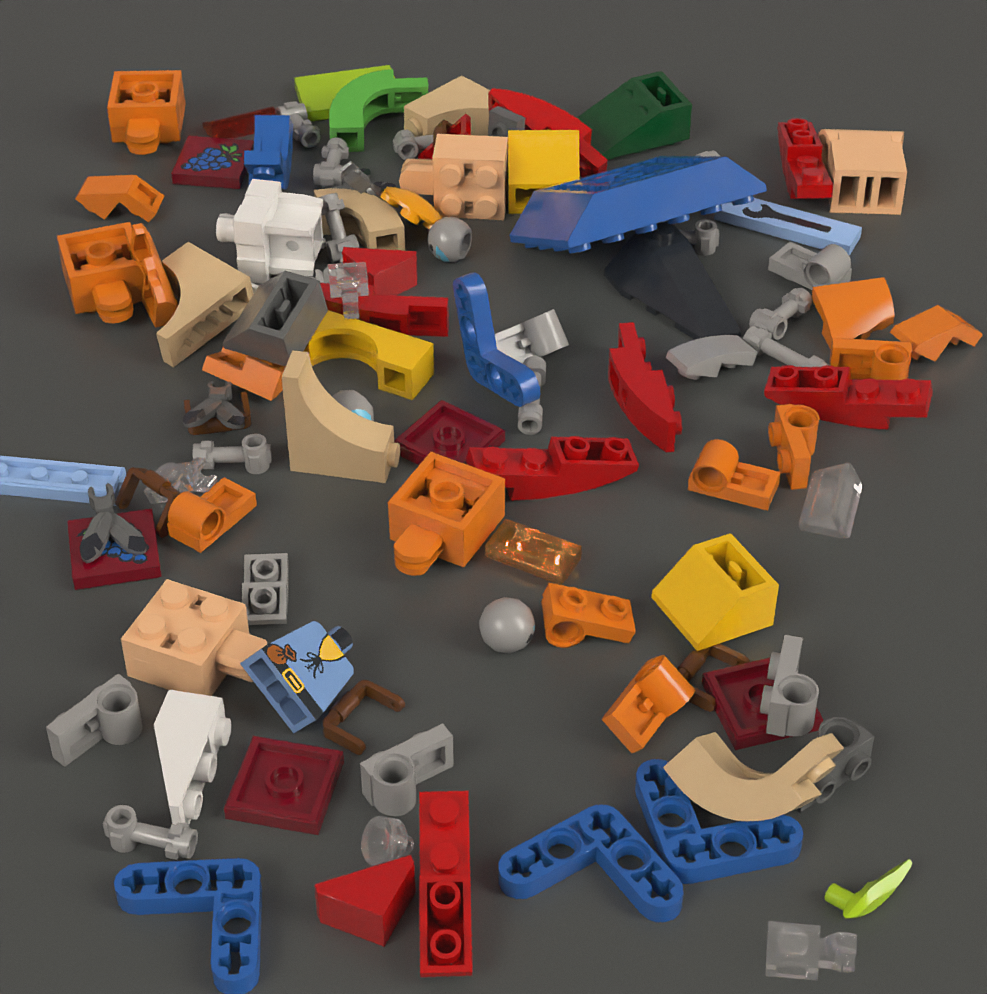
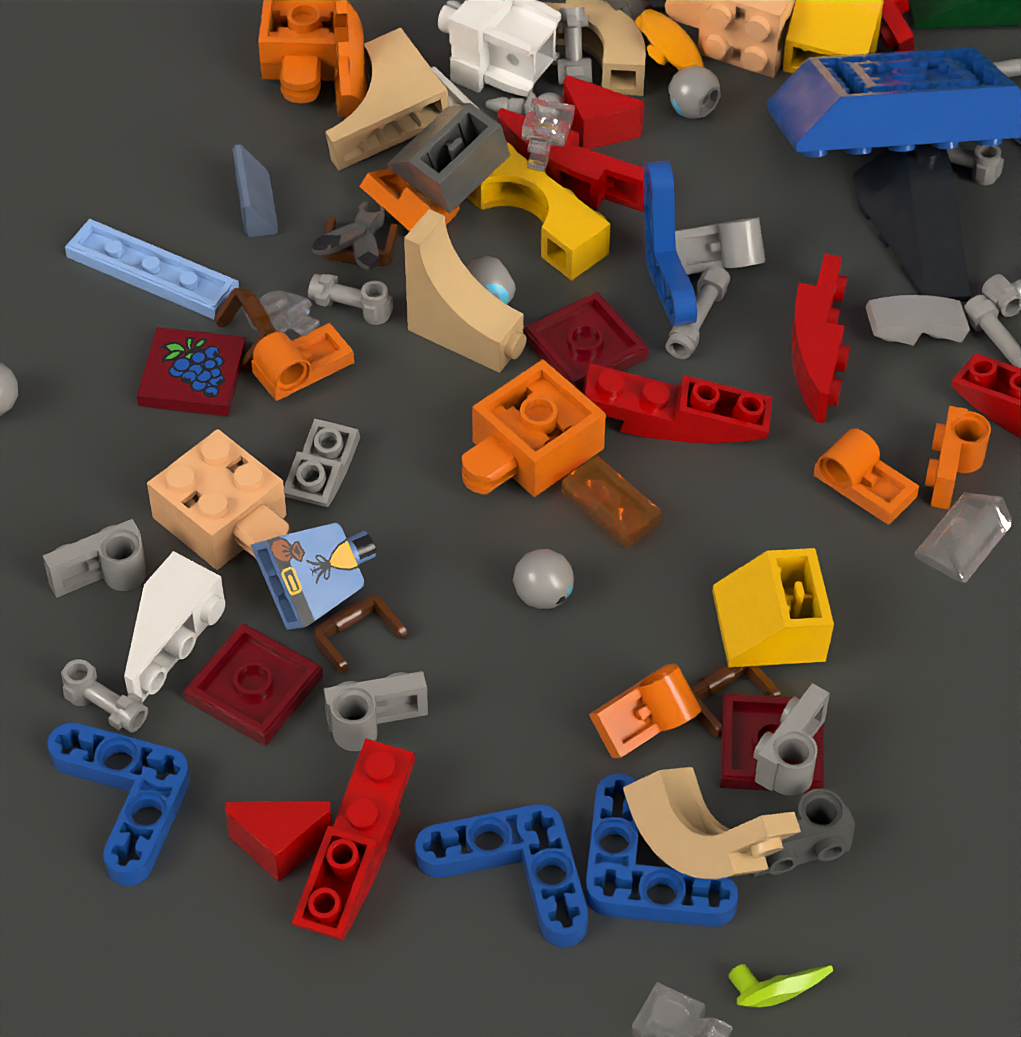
camera: 20 degrees right, 10 degrees up
(107, 400) = (254, 194): none -> sand blue slope
(108, 524) = (191, 344): dark grey piece -> none
(385, 840) = (320, 777): clear tile -> none
(575, 612) = (623, 587): orange plate -> none

